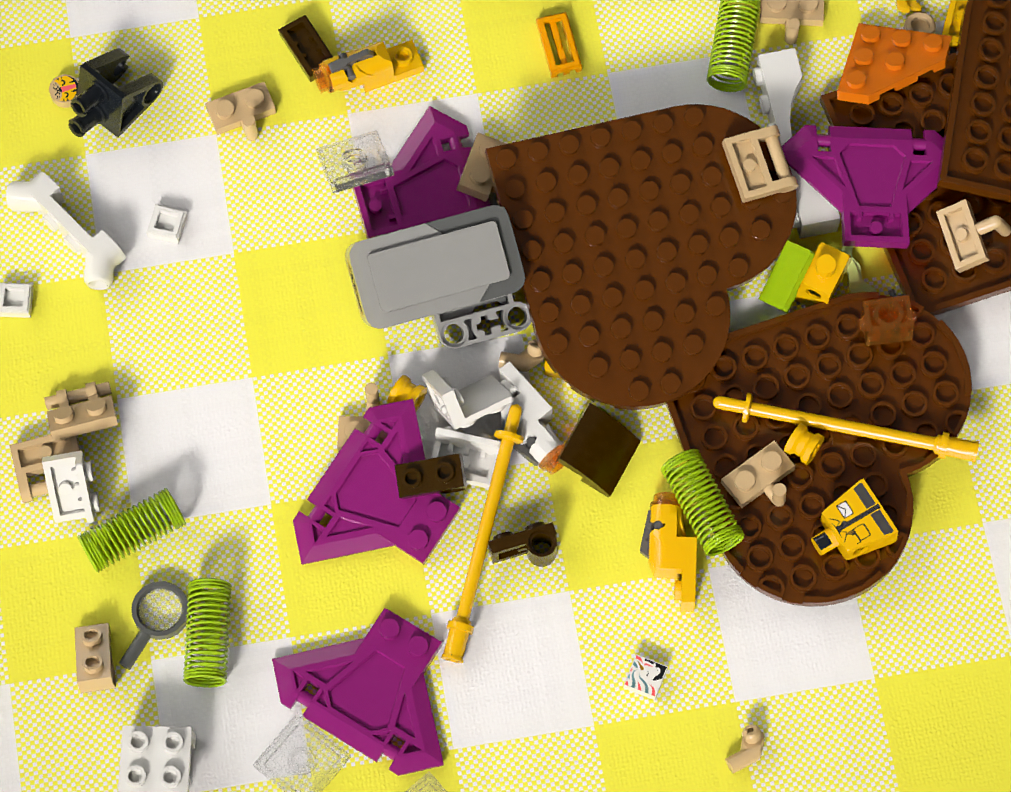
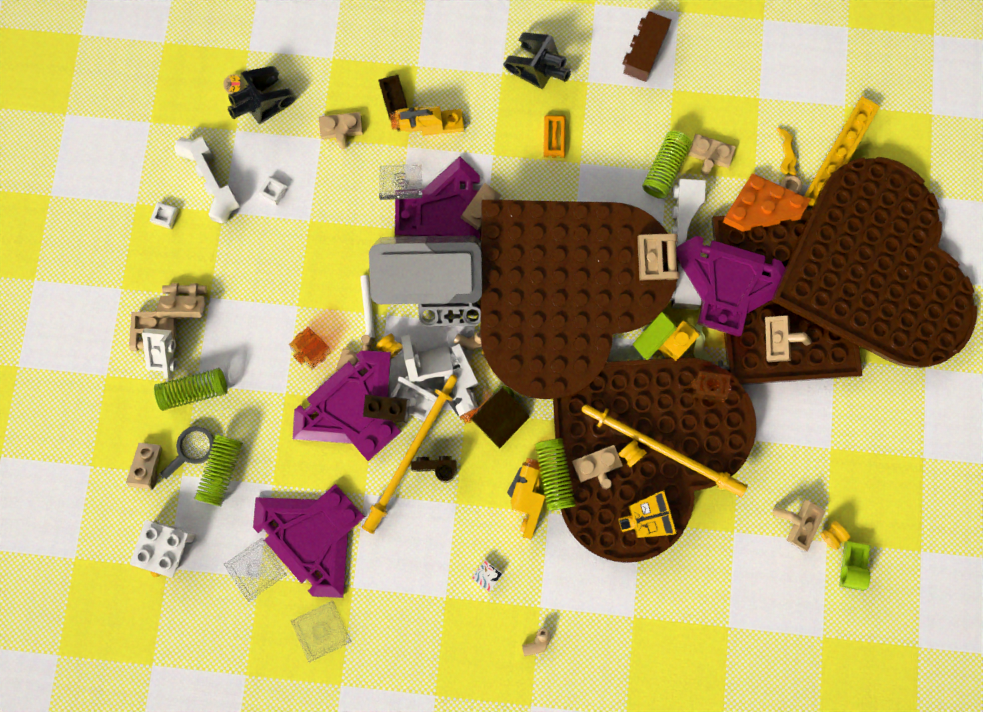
camera: 15 degrees right, 10 degrees up
(290, 427) = (309, 348): none -> clear orange head
(355, 346) = (367, 305): none -> white bar

